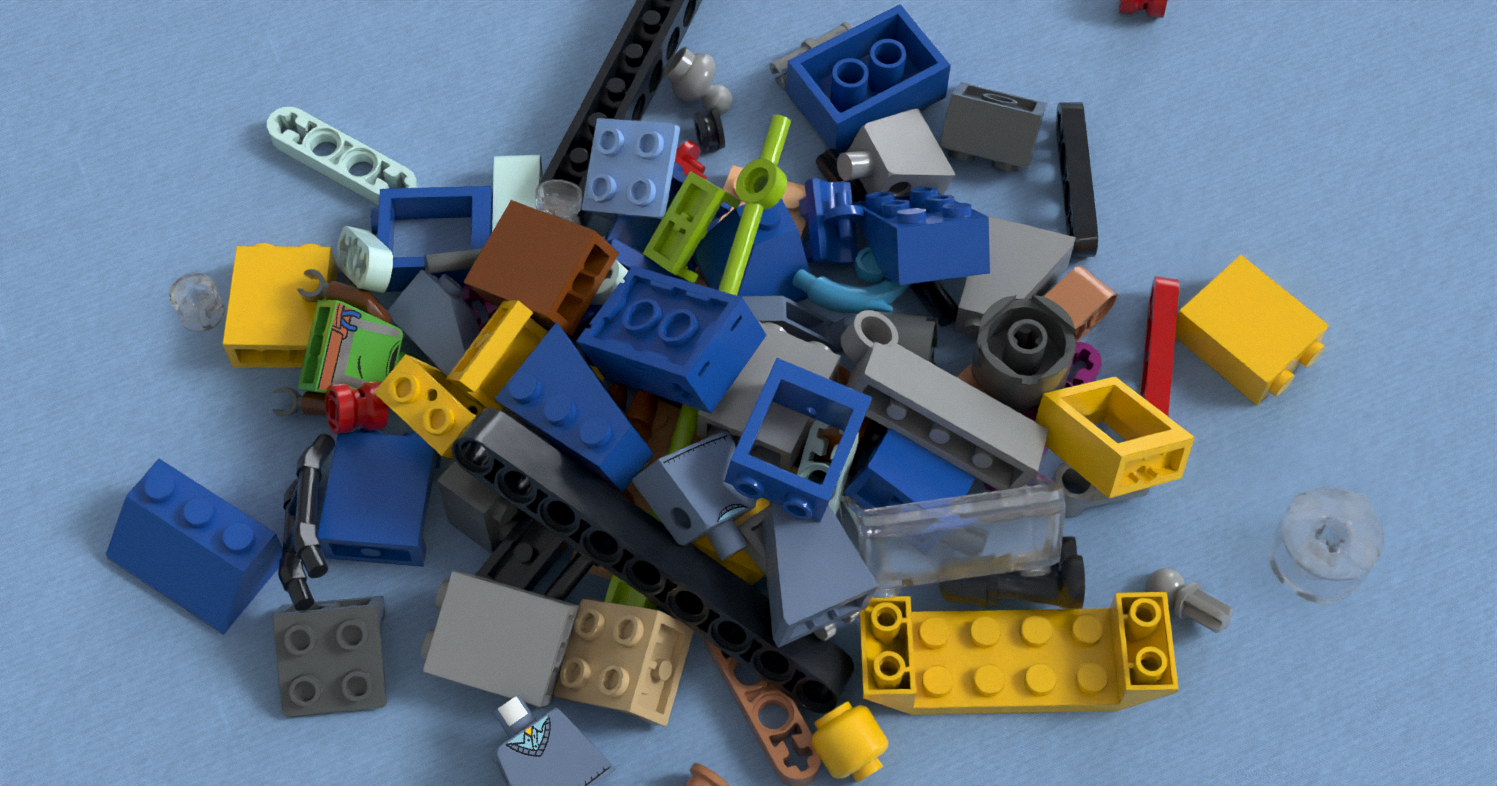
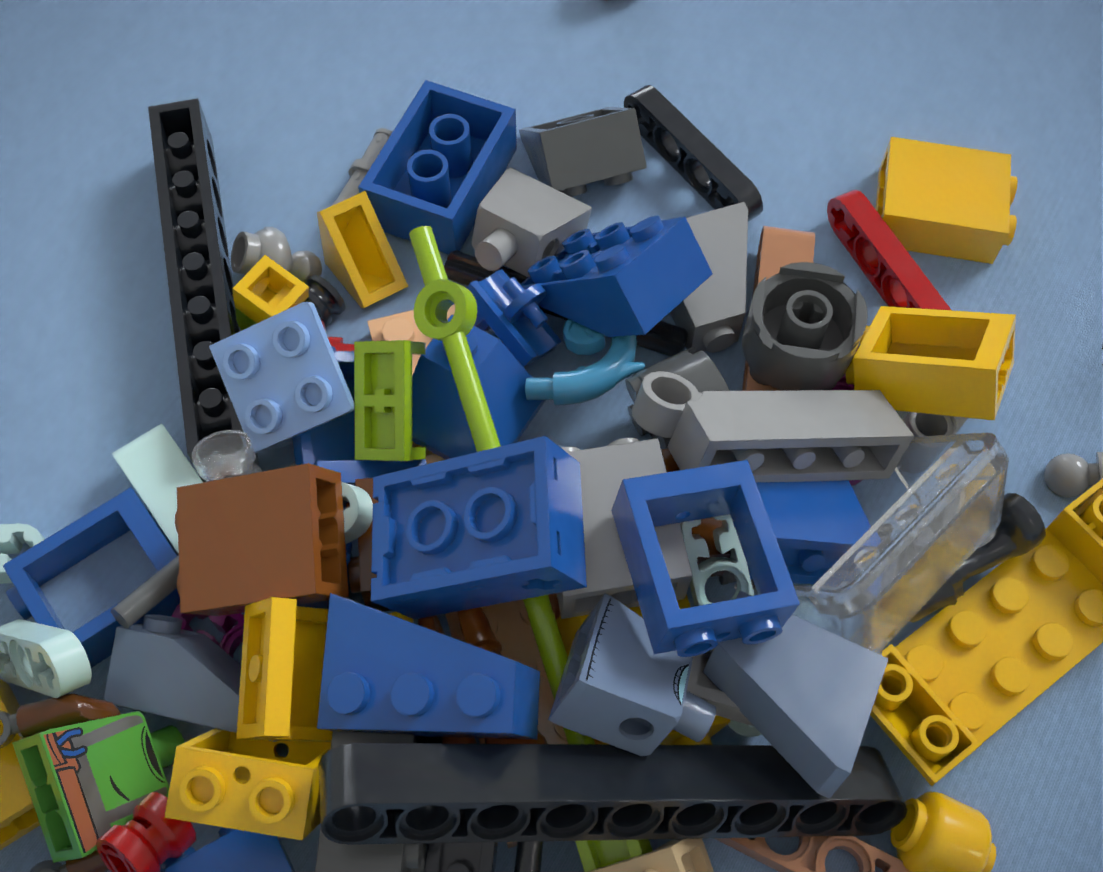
camera: 35 degrees left, 0 degrees up
(670, 107) = (266, 292): none -> yellow leg
(761, 96) = (359, 250): none -> yellow slope
(798, 320) = (566, 430): sand blue piece -> none

